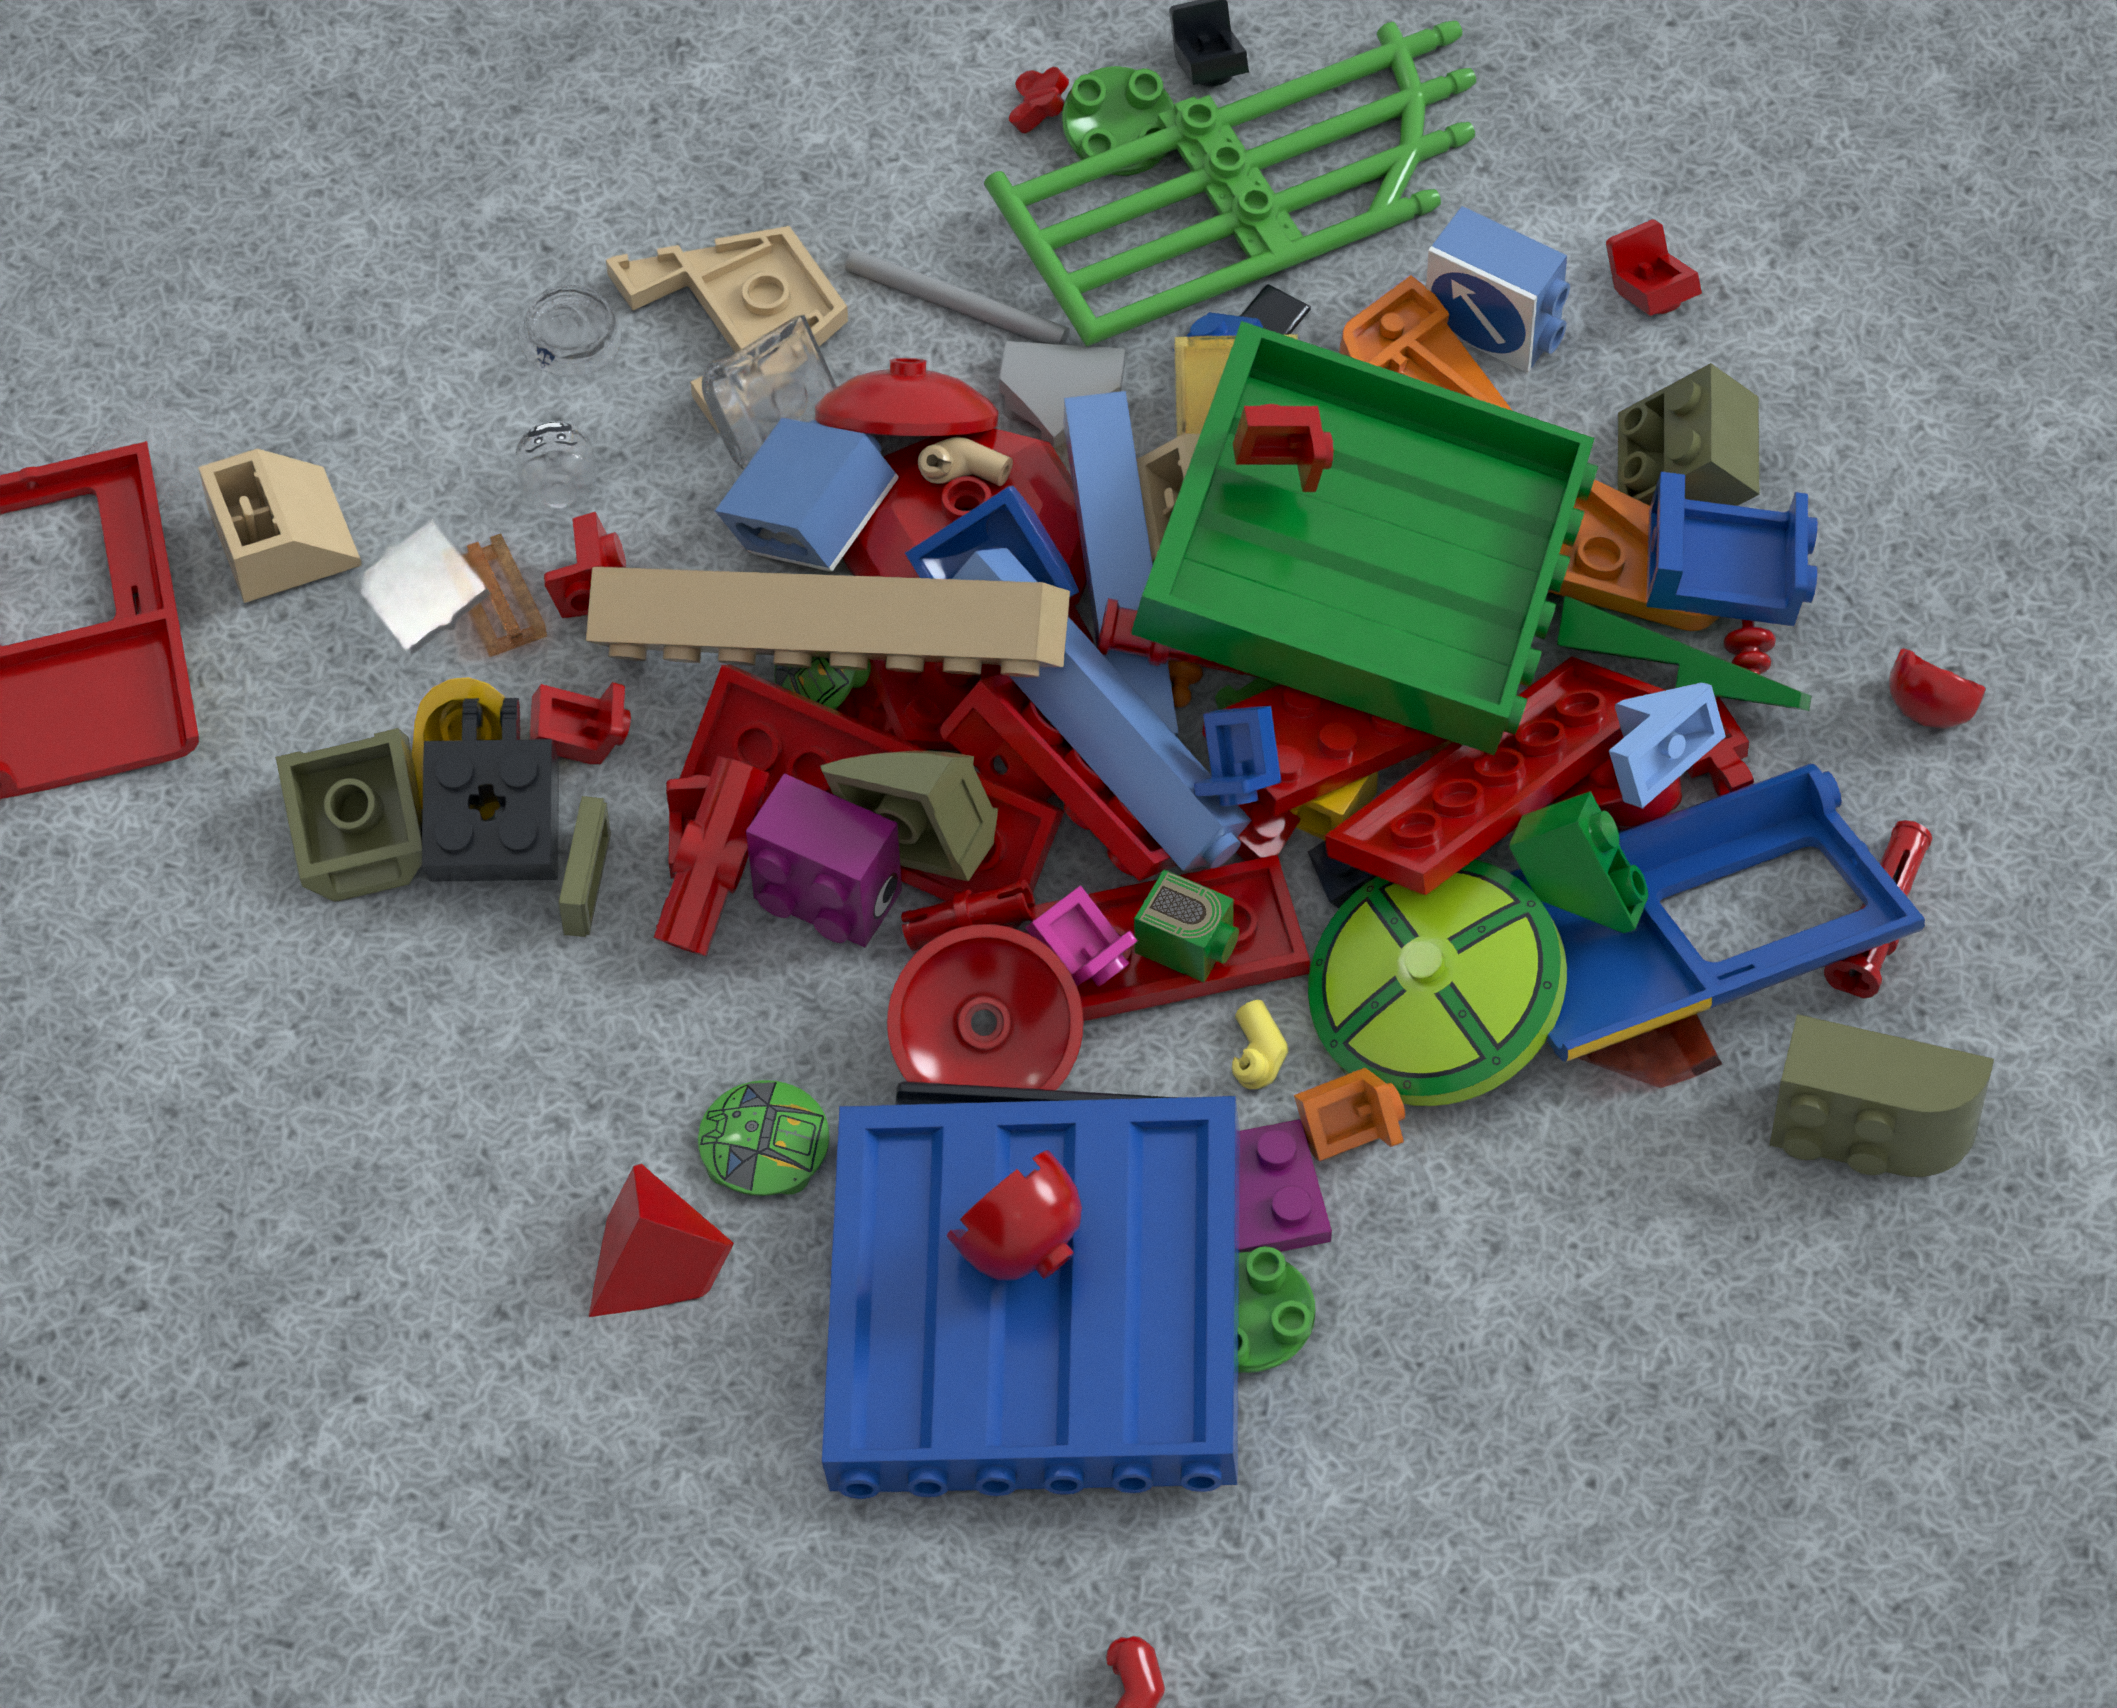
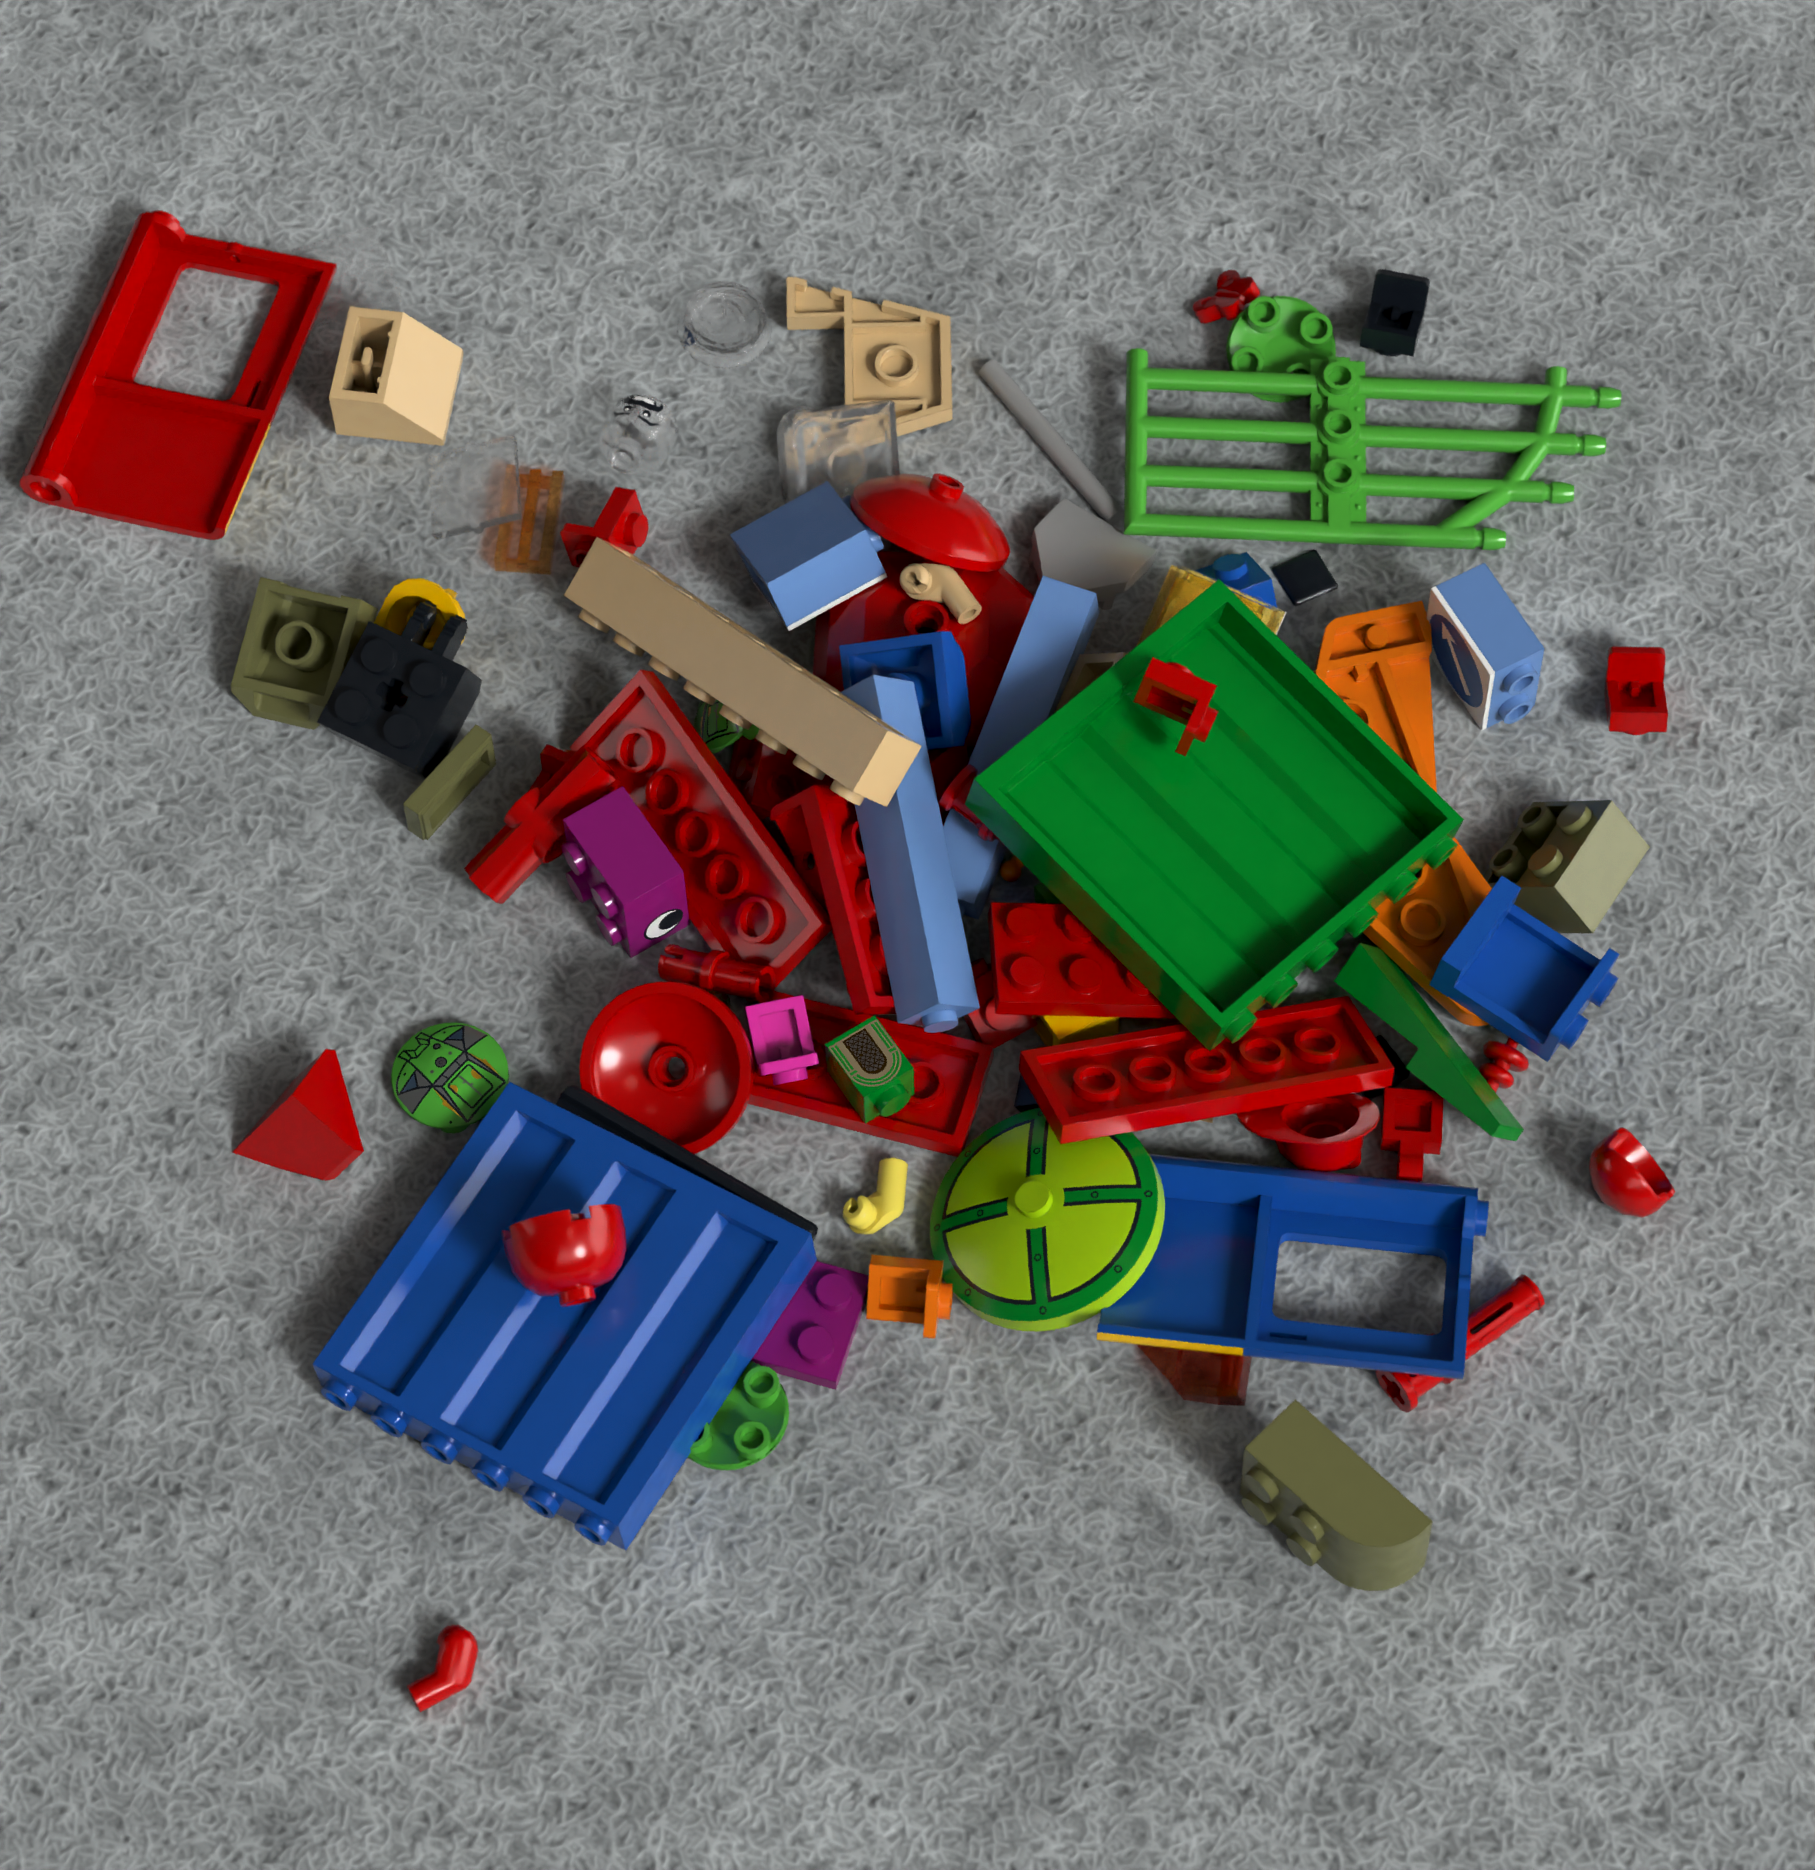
camera: 30 degrees right, 5 degrees up
(579, 724) = (519, 660): red bracket -> none
(934, 799) = (719, 863): olive slope -> none
(1240, 754) = (987, 953): blue bracket -> none
(1577, 863) = (1211, 1180): green slope -> none
(1663, 739) = (1353, 1109): light blue slope -> none

